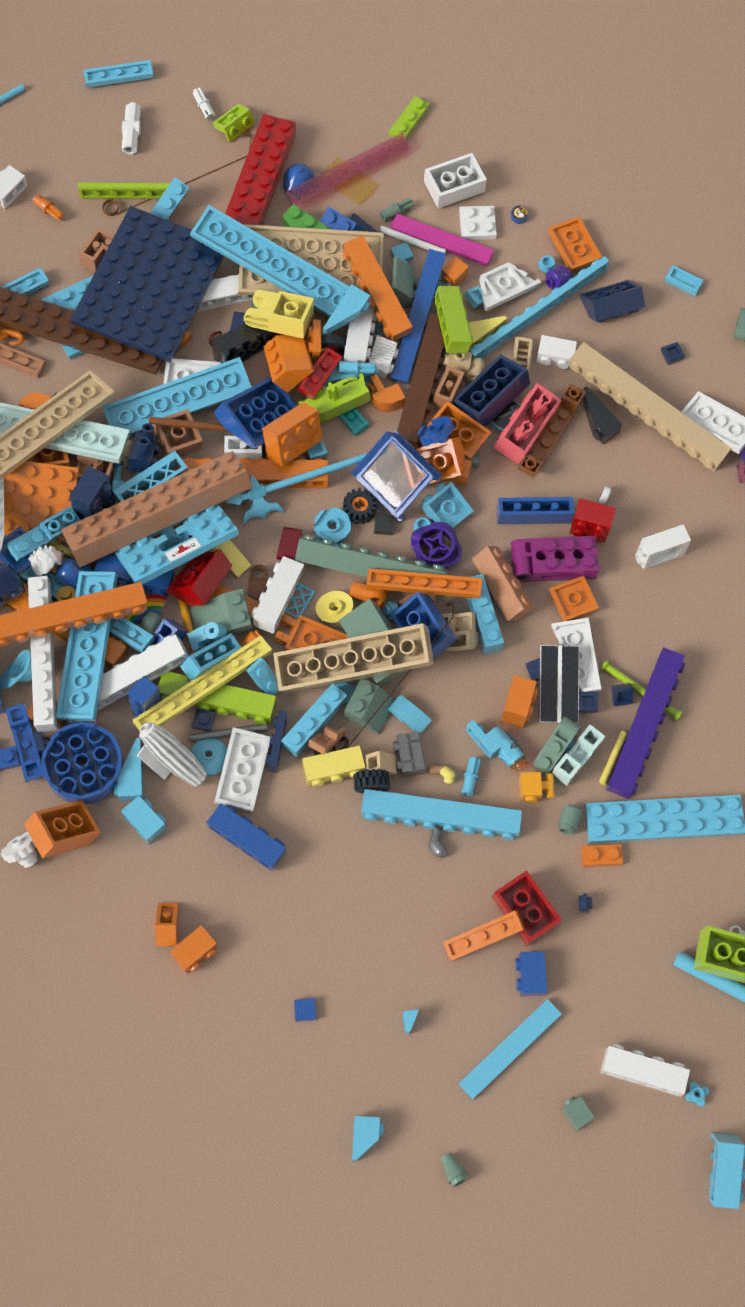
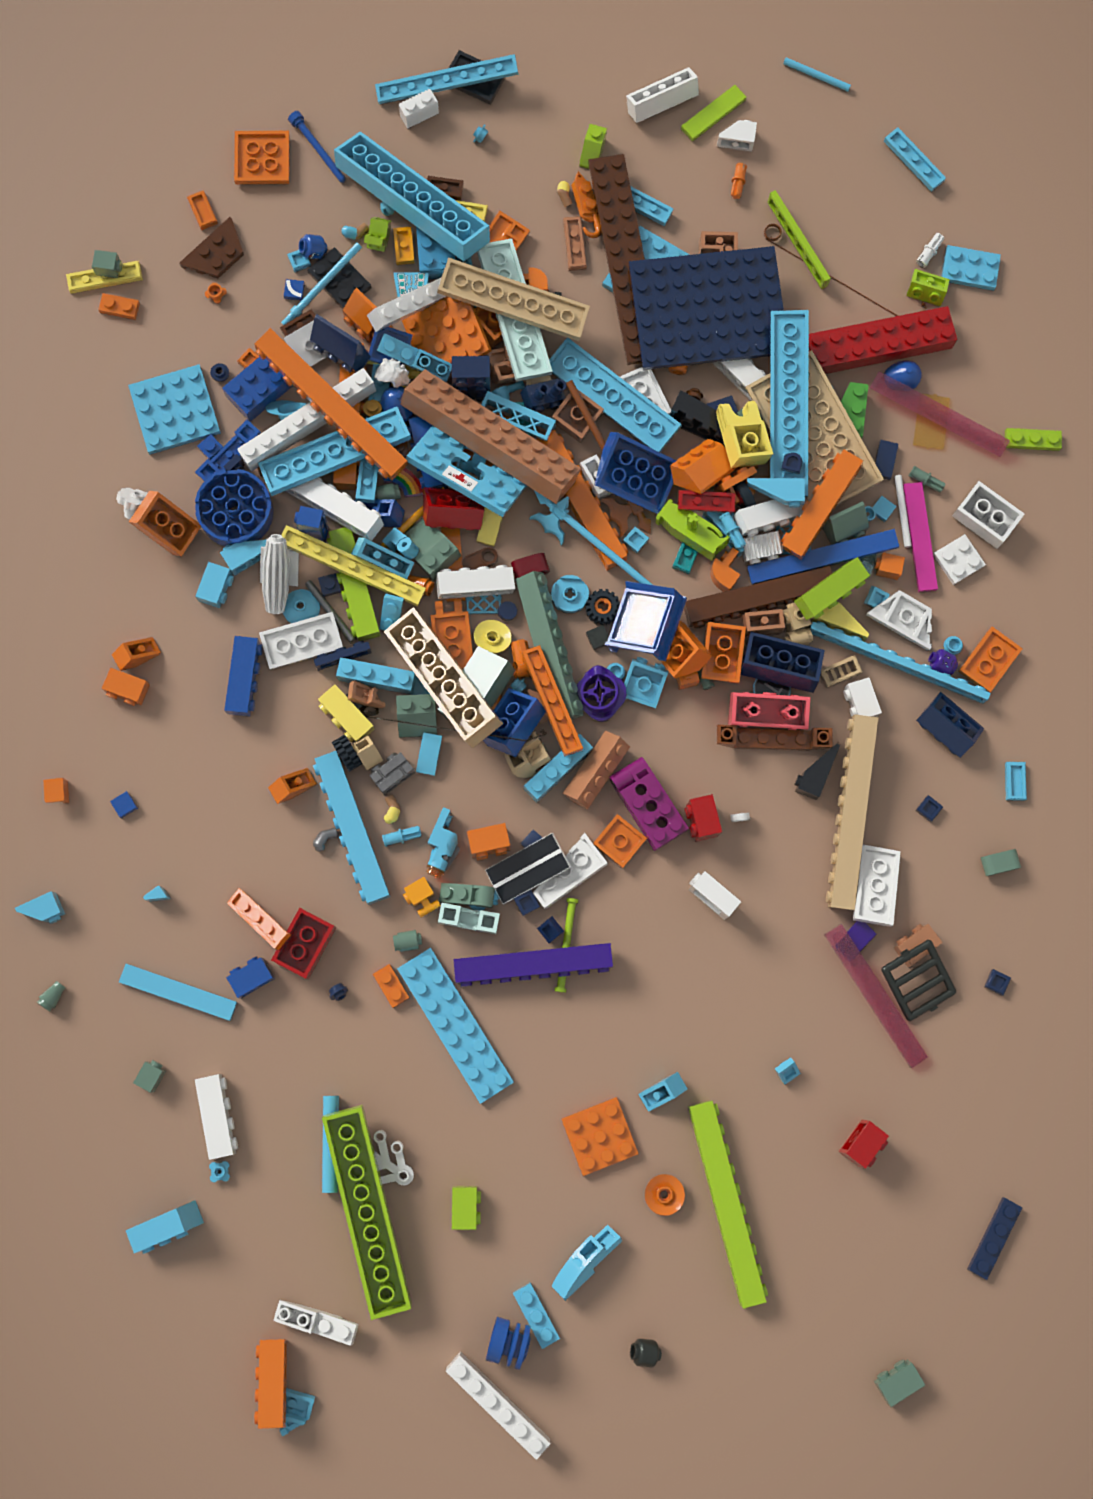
camera: 60 degrees right, 10 degrees up
(131, 128) = (863, 203): white piece -> none
(170, 199) = (804, 277): medium azure plate -> none
(237, 84) = (971, 267): none -> medium azure plate
(257, 1065) = (56, 790): none -> orange panel
(292, 434) = (630, 510): orange brick -> none
(317, 584) = (507, 611): none -> dark blue tile
(329, 289) = (792, 463): none -> dark blue tile
(338, 221) = (876, 437): blue brick -> none
(373, 847) = (291, 785): none -> orange slope
(437, 431) = (702, 632): blue plate -> none
(519, 214) = (992, 593): tile -> none
(535, 510) = (685, 761): blue brick -> none
(613, 757) = (487, 951): light yellow bar -> none

